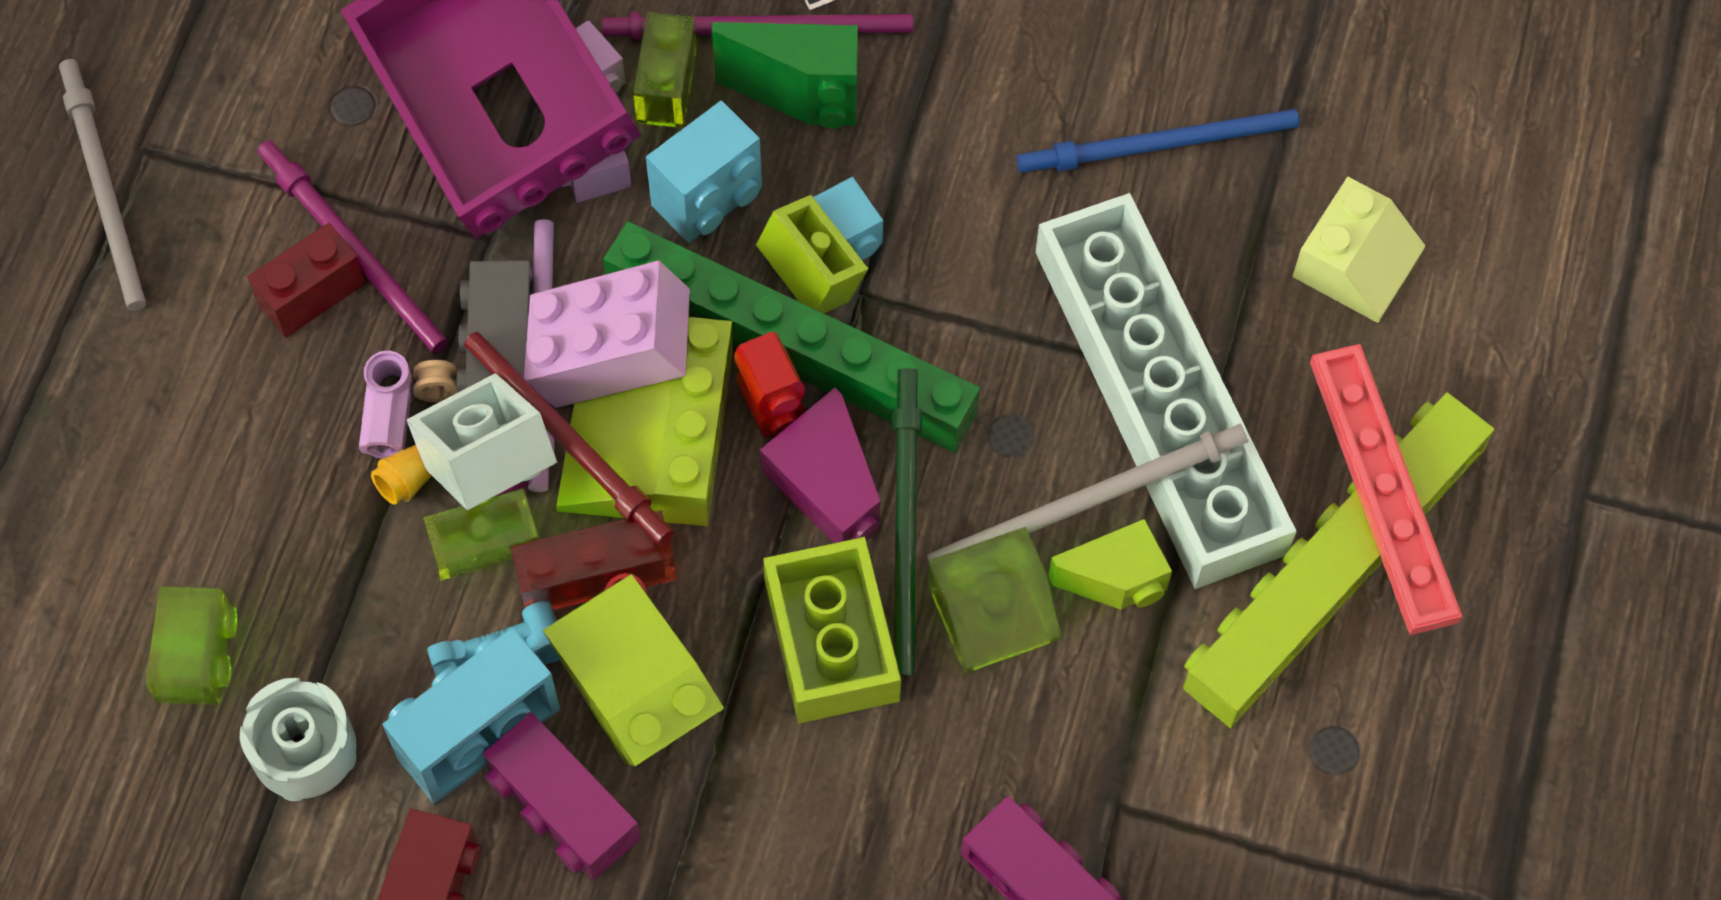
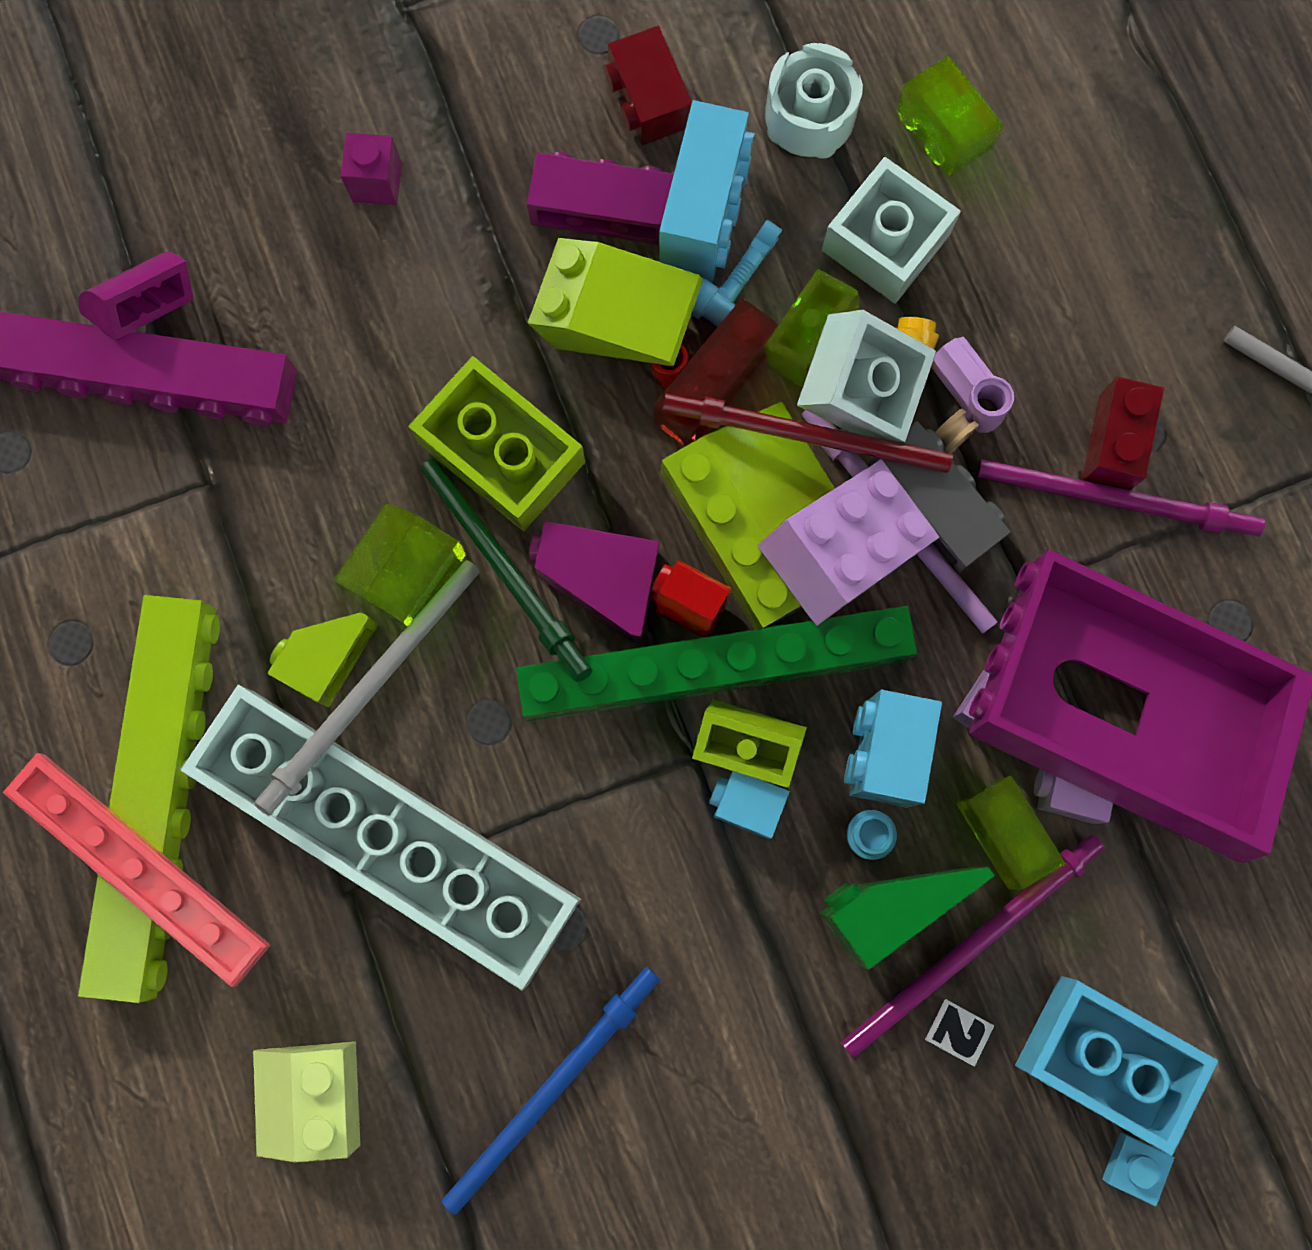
camera: 145 degrees right, 15 degrees up
(338, 572) = (890, 229): none -> light aqua brick
(775, 142) = (871, 834): none -> medium azure plate

